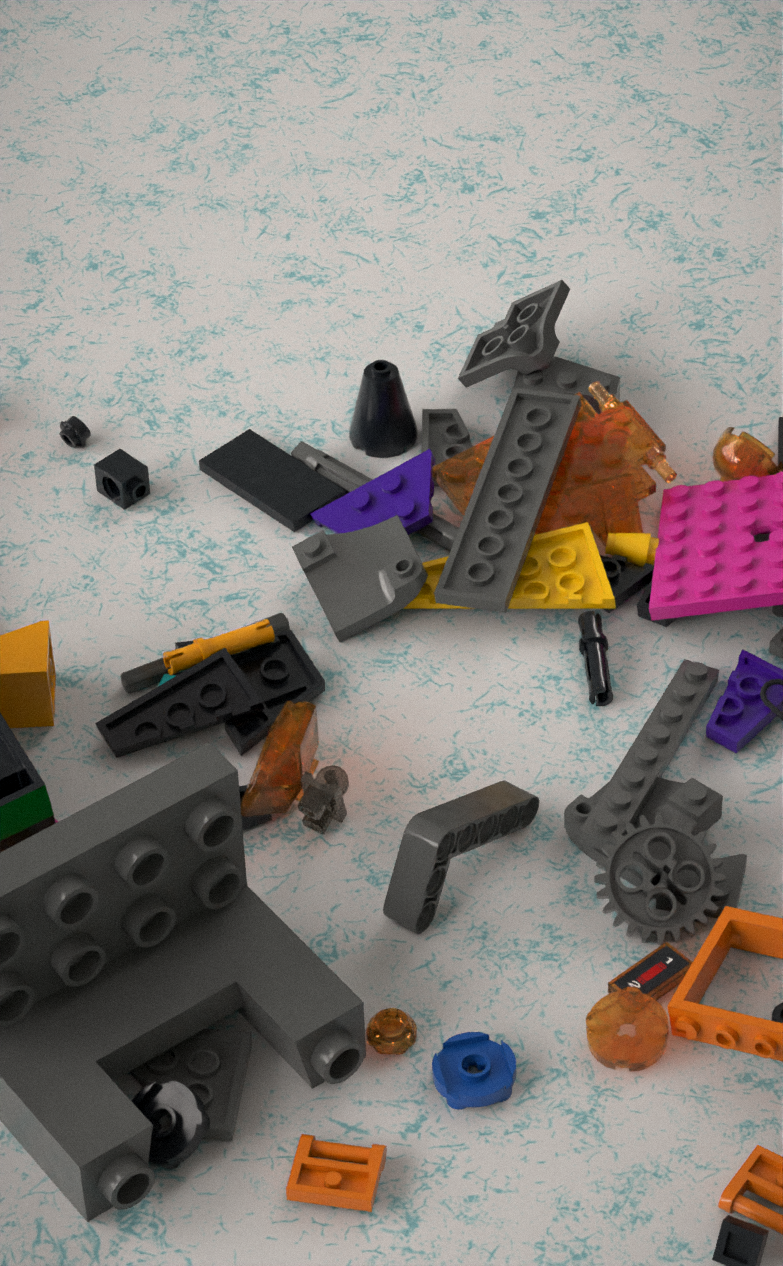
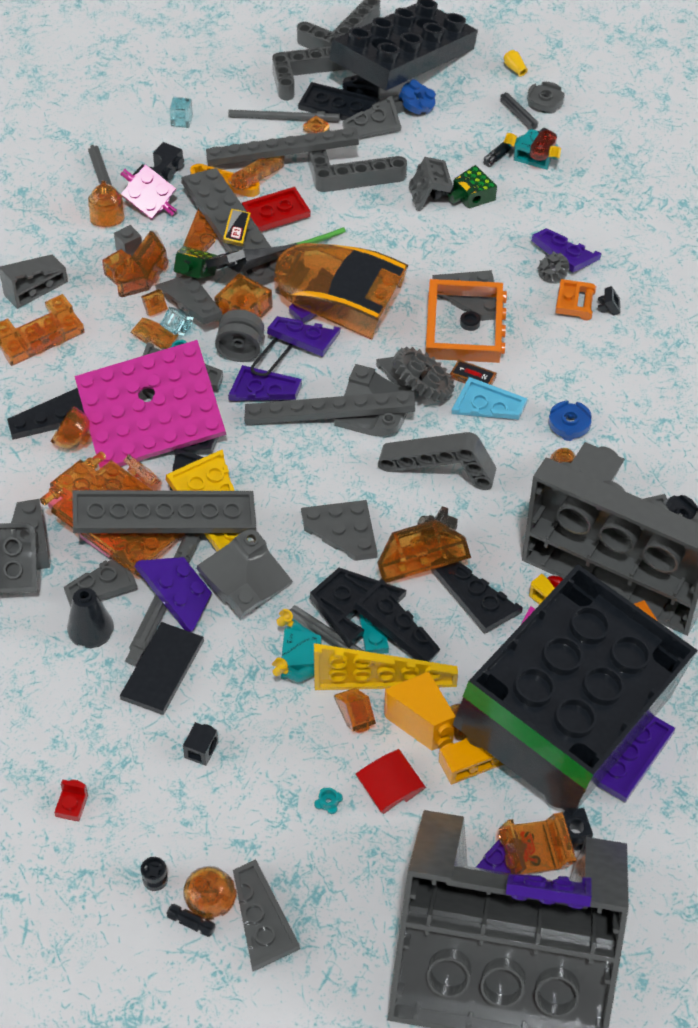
camera: 115 degrees left, 10 degrees up
(74, 432) = (160, 796): black plate -> none
(78, 630) = (355, 709): none -> clear orange slope
(113, 643) = (348, 669): none -> yellow wing
(123, 363) = (72, 800): none -> red bracket
(198, 602) = (297, 650): none -> teal torso
(233, 641) = (356, 618): light orange pin -> none
(335, 1181) = (665, 446): orange plate -> none
(405, 721) = (343, 527): none -> dark grey plate
(575, 972) = (488, 401): none -> medium azure wing
(593, 648) = (249, 460): black pin -> none
(622, 1008) = (513, 361): clear orange plate -> none
(637, 547) = (161, 462): yellow cone -> none

